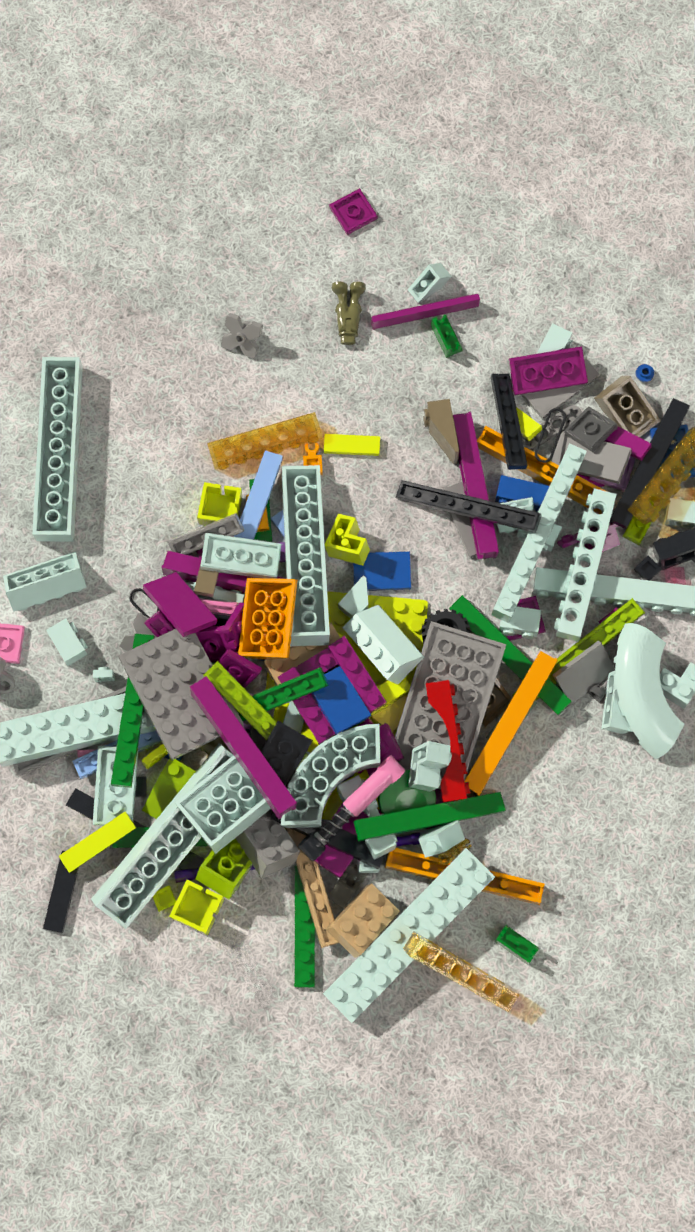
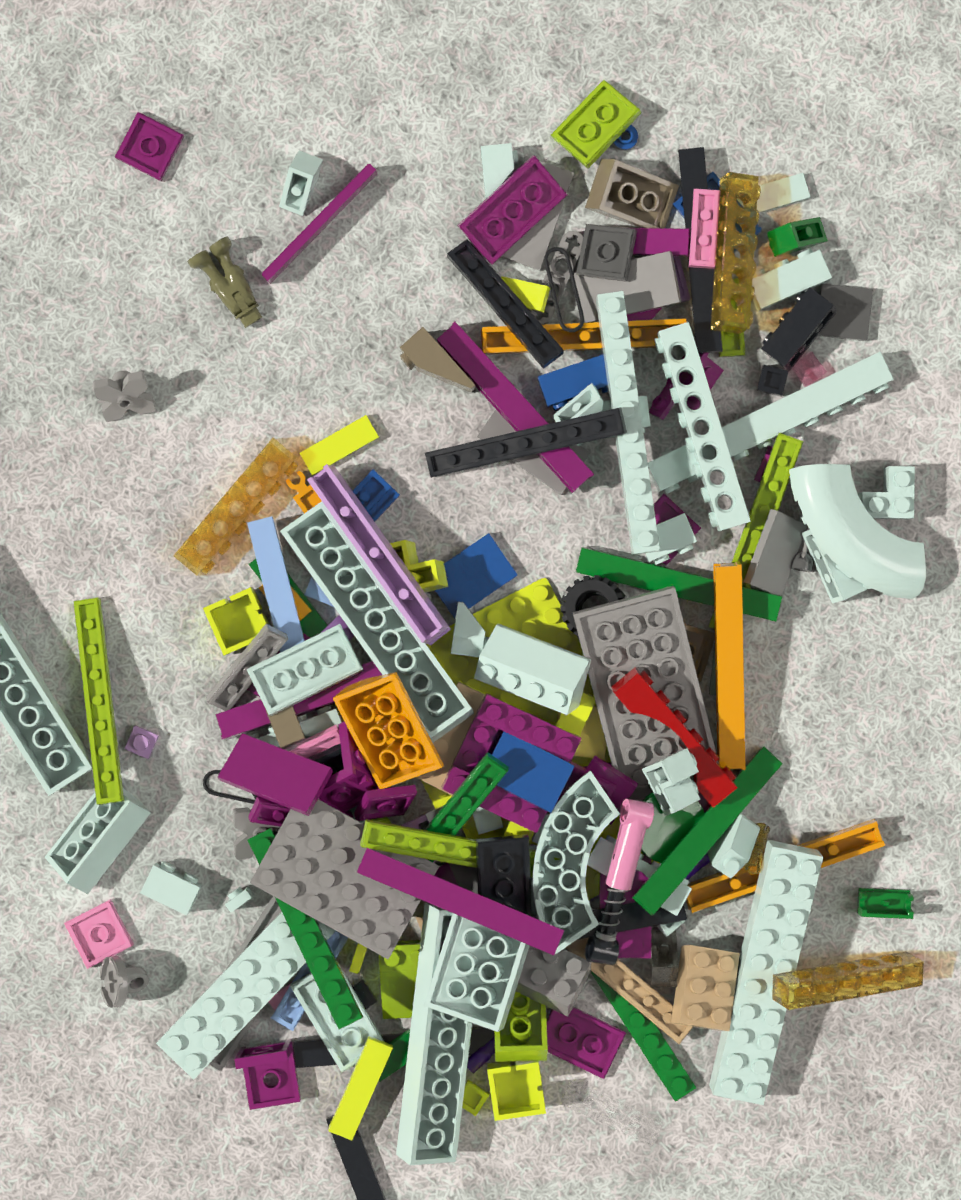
camera: 30 degrees left, 15 degrees up
(47, 784) = (266, 1059): none -> magenta bracket
(101, 501) = (98, 701): none -> lime tile
(111, 544) = (141, 742): none -> lavender plate
(260, 906) = (583, 1040): none -> magenta tile
(333, 517) = (379, 555): none -> lavender tile
(348, 487) = (375, 494): none -> blue plate
(446, 336) = (364, 239): green hinge -> none
(631, 354) = (596, 124): none -> lime tile
(660, 450) = (704, 228): none -> bright pink tile

